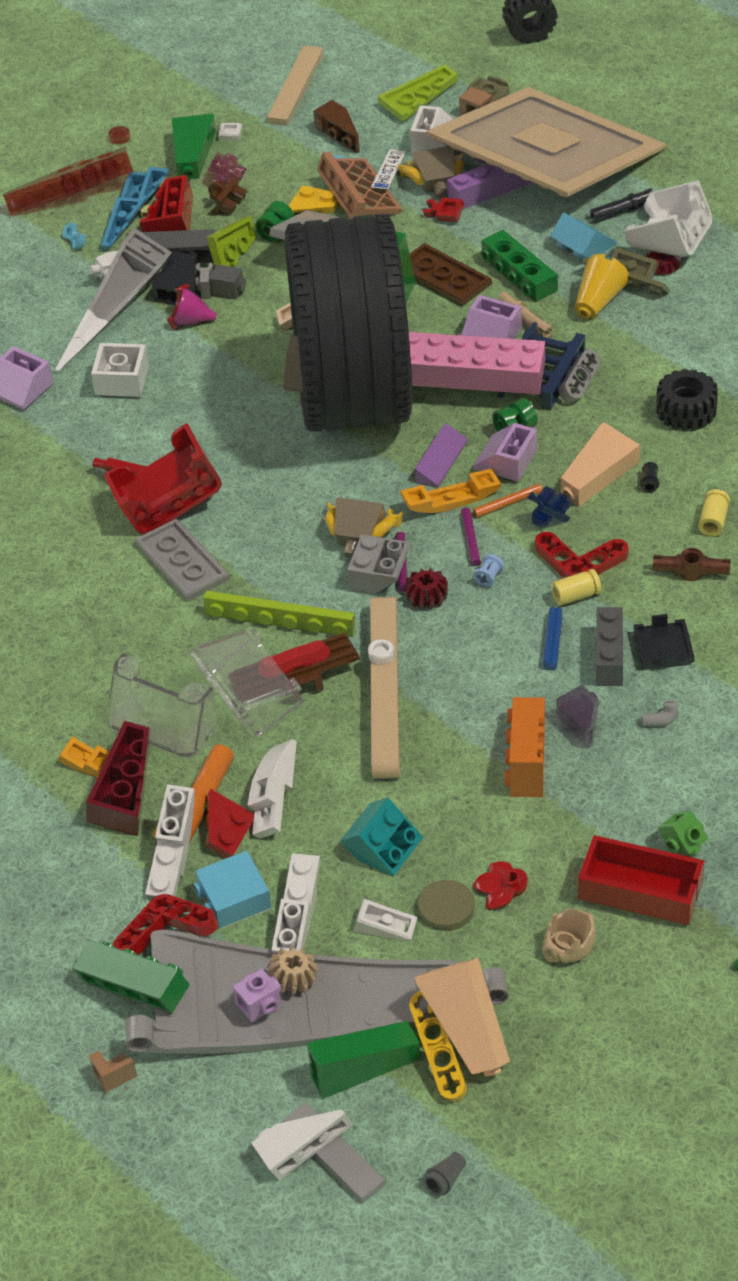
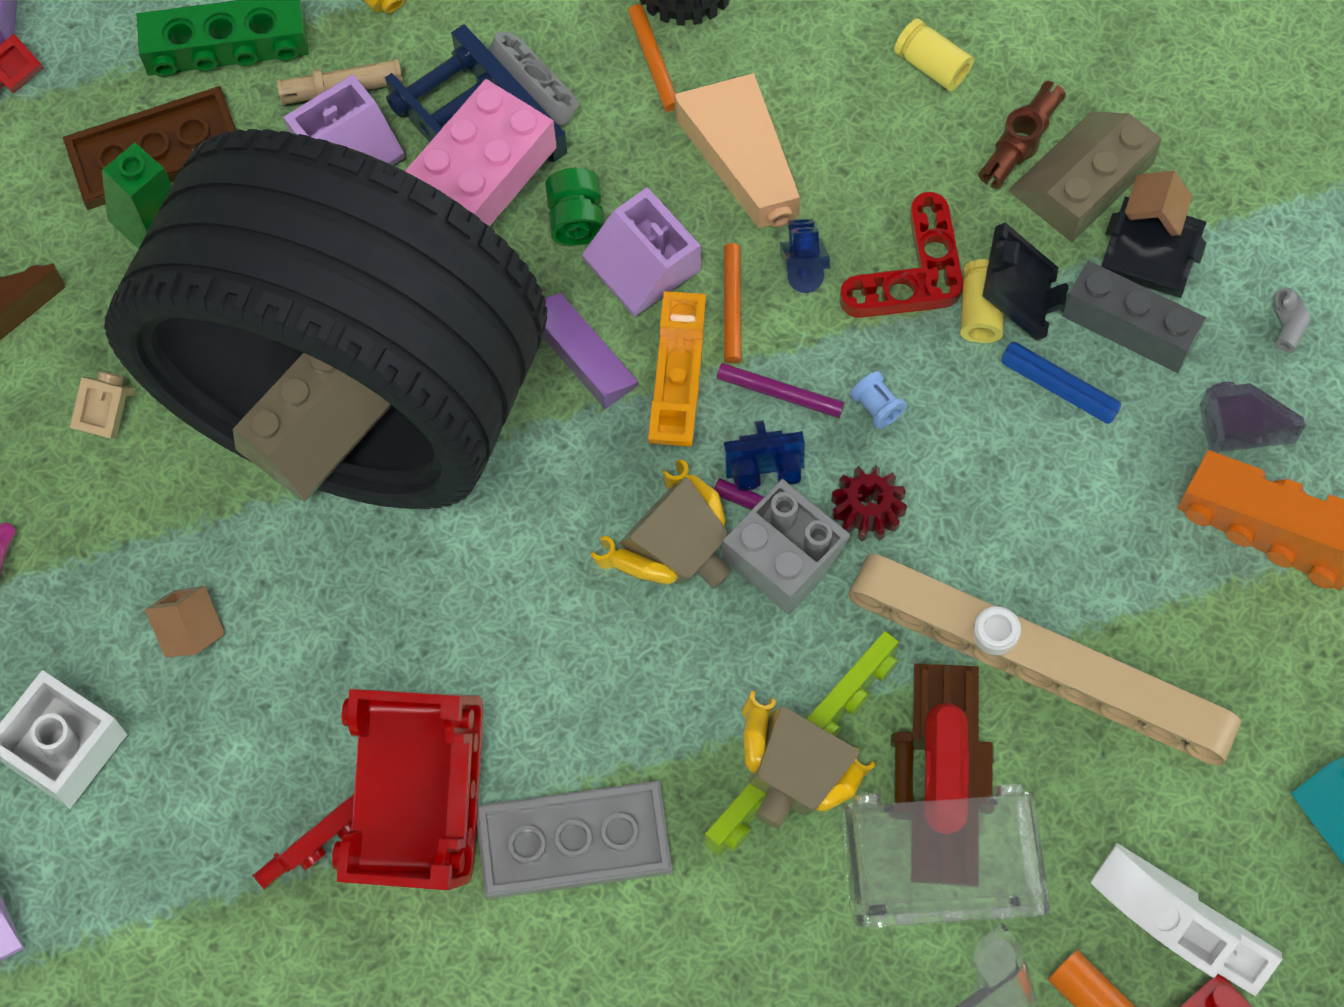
camera: 65 degrees left, 20 degrees up
(205, 387) = (185, 621): none -> medium nougat panel
(259, 604) = (796, 763): none -> dark tan torso
(427, 541) = (764, 454): none -> clear blue hips
(592, 588) = (1021, 282): none -> black piece
(635, 412) = (653, 56): none -> orange bar
(649, 480) = (814, 101): black pin -> none
(687, 630) = (1162, 197): none -> medium nougat panel
(688, 601) = (1087, 171): none -> dark tan slope

